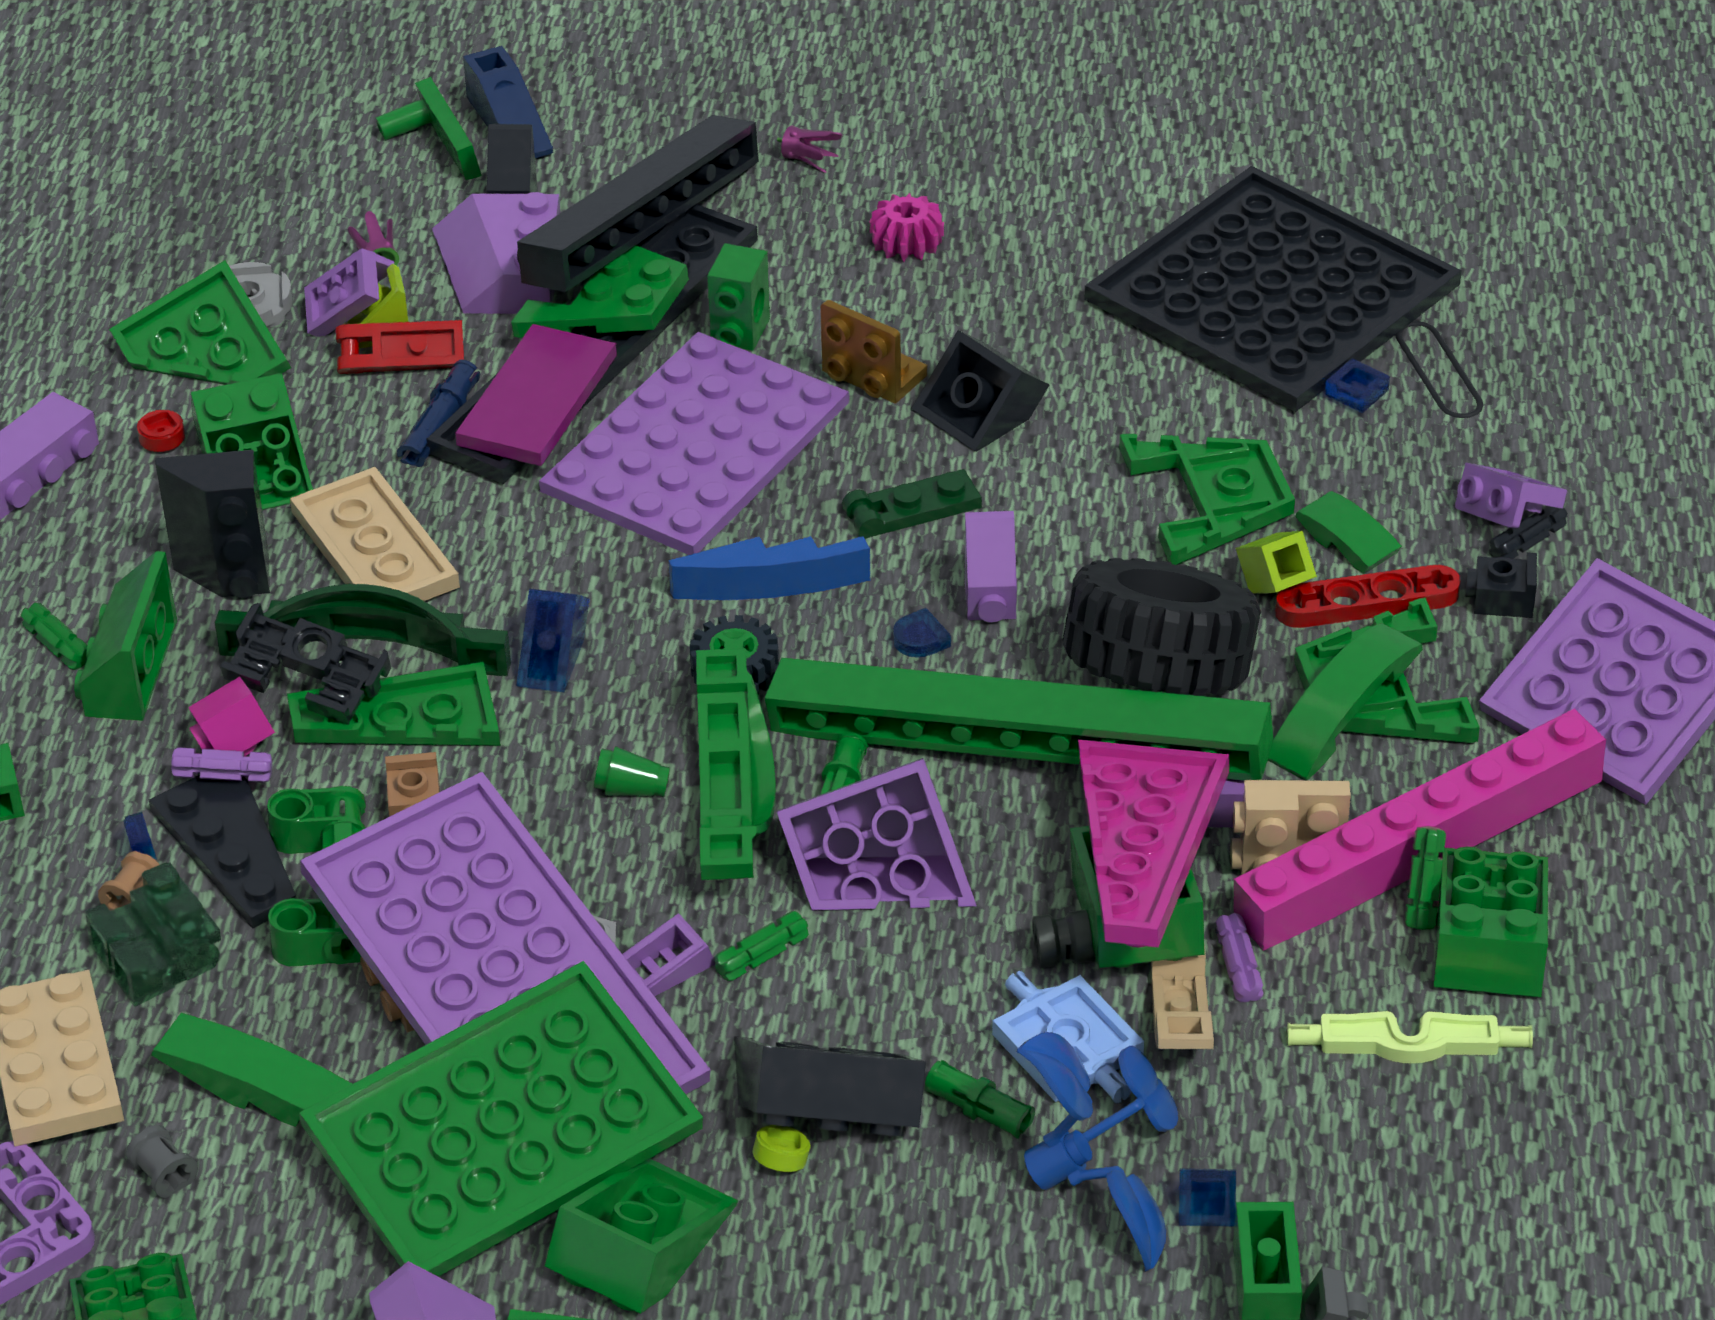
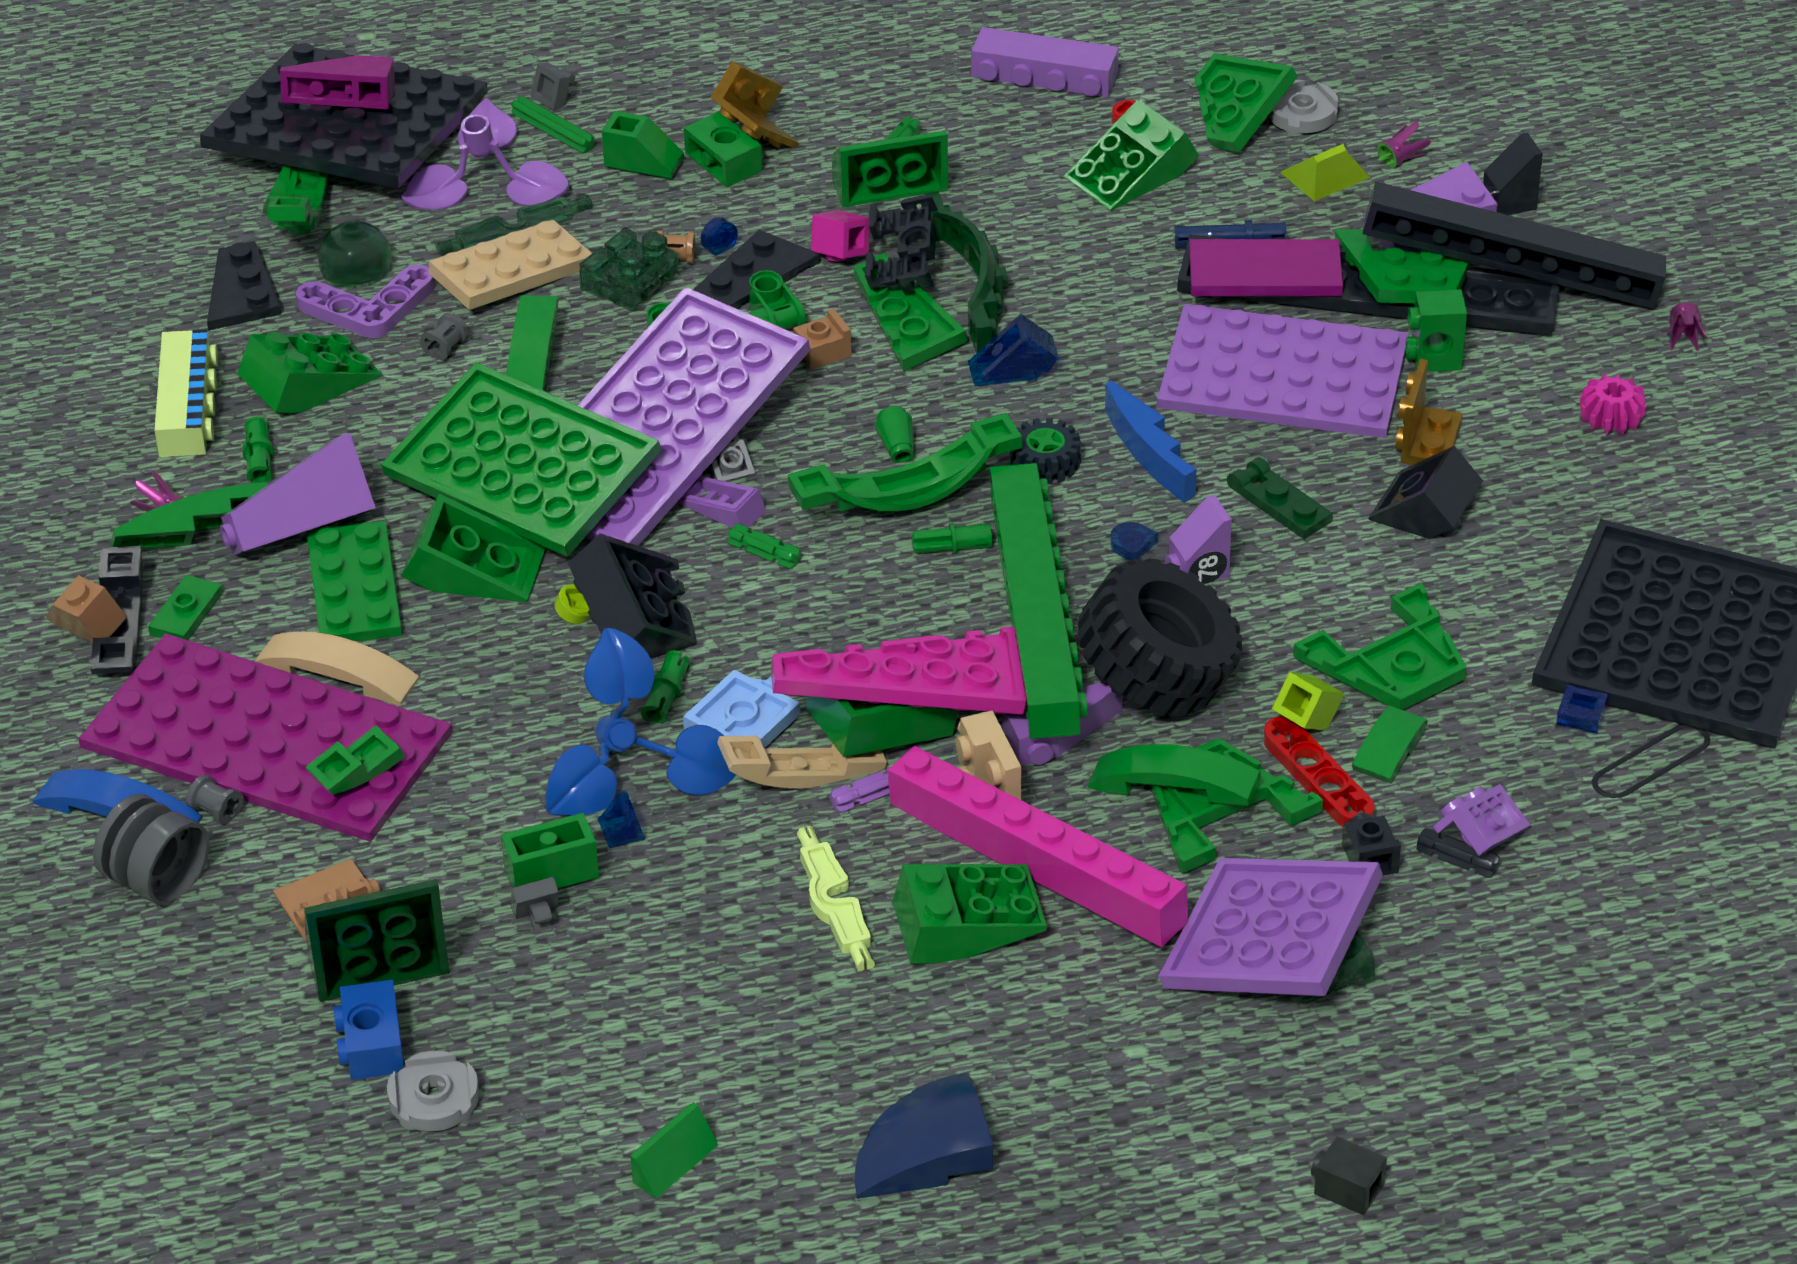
camera: 70 degrees right, 0 degrees up
(216, 521) = (1009, 157): black slope -> none
(221, 764) = (797, 245): medium lavender axle -> none
(344, 291) = (1324, 136): medium lavender bracket -> none
(373, 536) = (1070, 247): tan plate -> none
(400, 346) = (1289, 193): red plate -> none
(434, 110) = (1571, 130): green piece -> none
(501, 95) = (1613, 151): dark blue slope -> none
(876, 844) = (881, 568): medium lavender wedge -> none
(1425, 877) = (989, 845): green axle -> none

